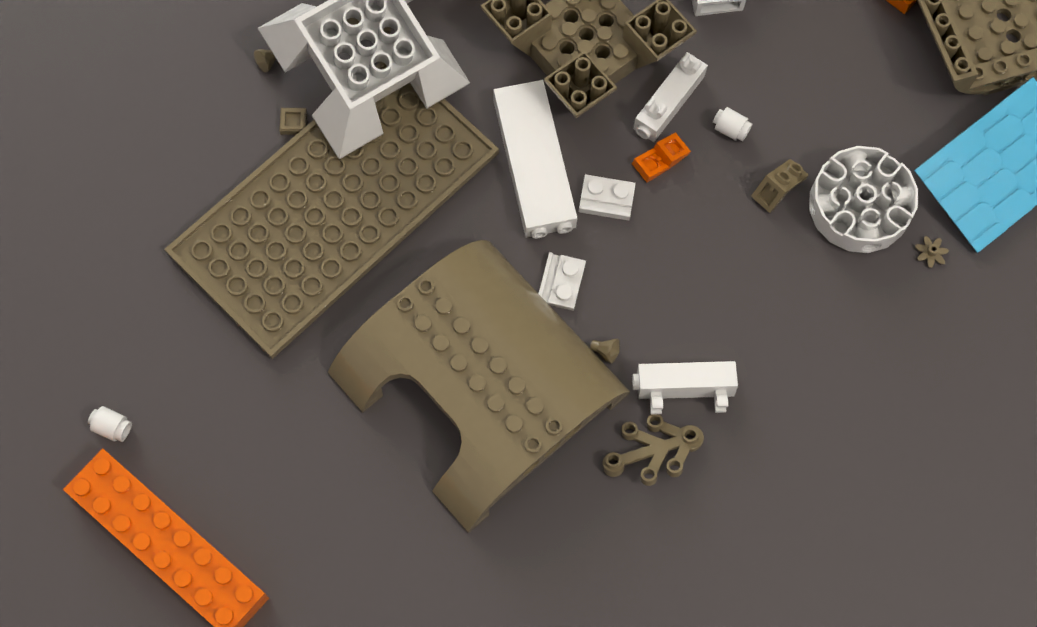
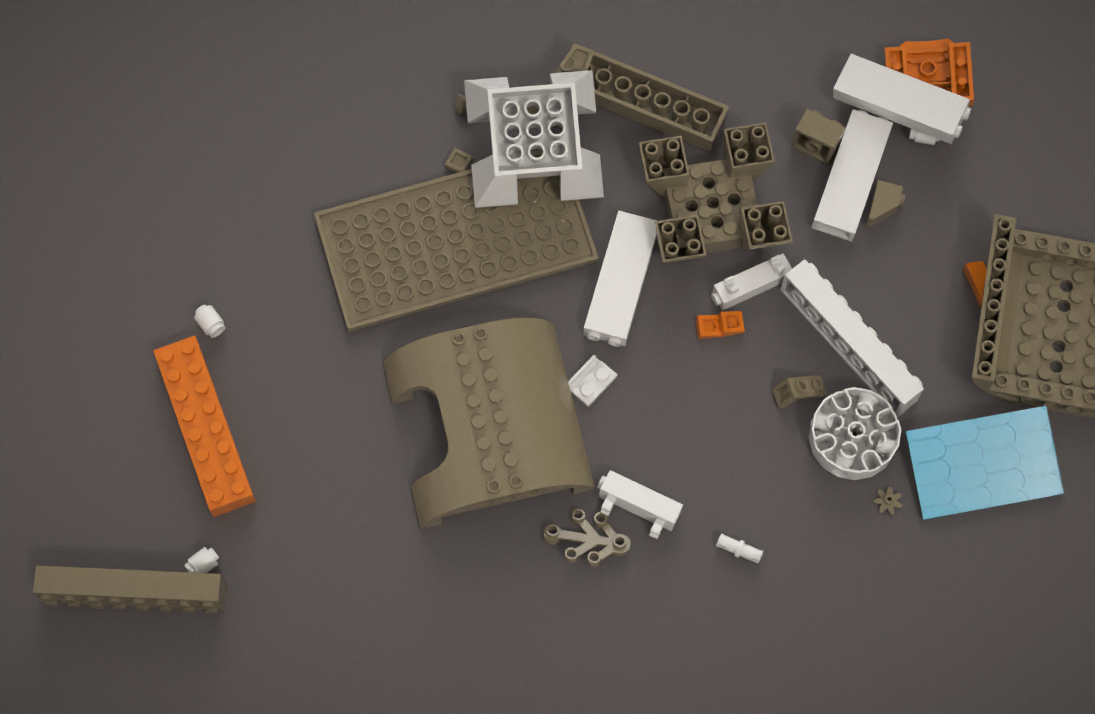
camera: 30 degrees right, 0 degrees up
(607, 197) = (661, 335): white plate -> none
(608, 349) = (595, 448): dark tan rock -> none
(732, 124) = (788, 326): white brick -> none
(802, 102) = (851, 337): none -> white brick
(815, 377) = (739, 548): none -> white pin

